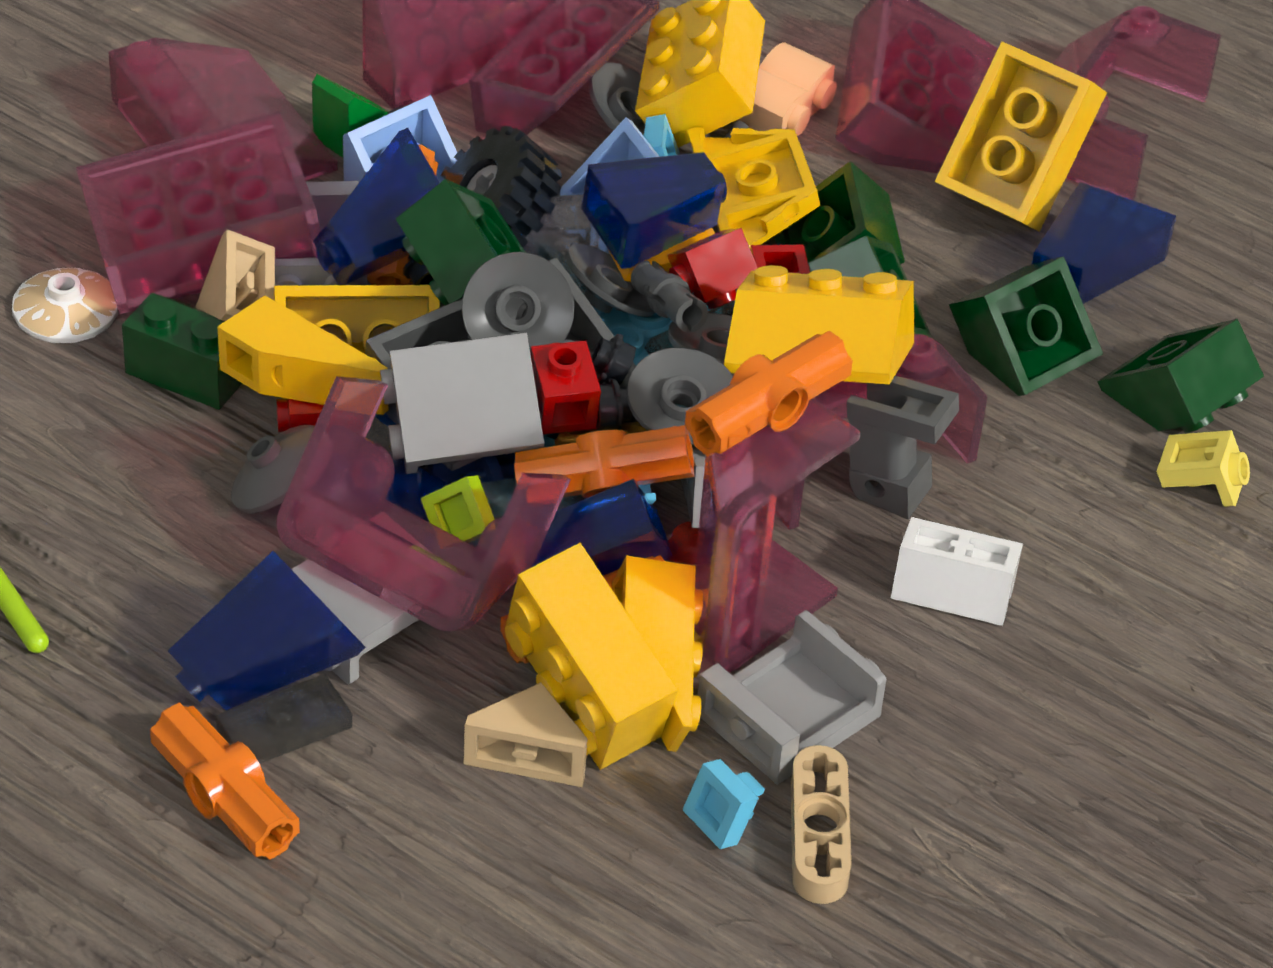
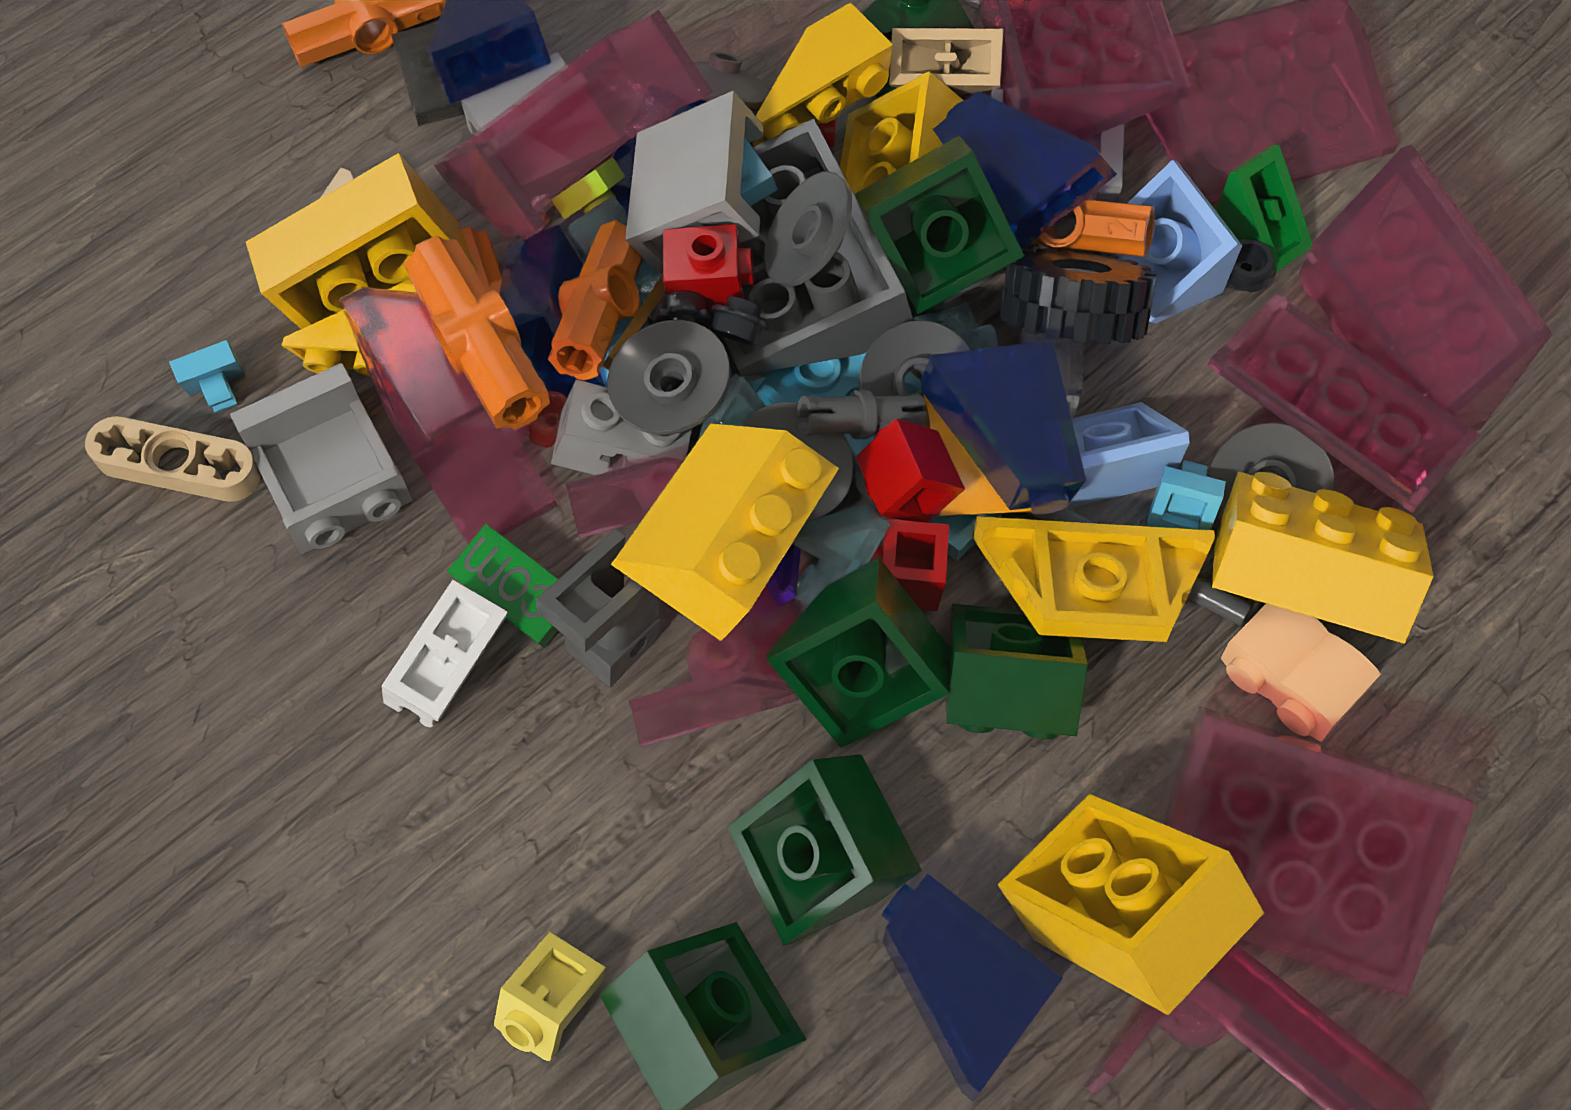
camera: 105 degrees right, 20 degrees up
(866, 547) = (507, 579): none -> green tile

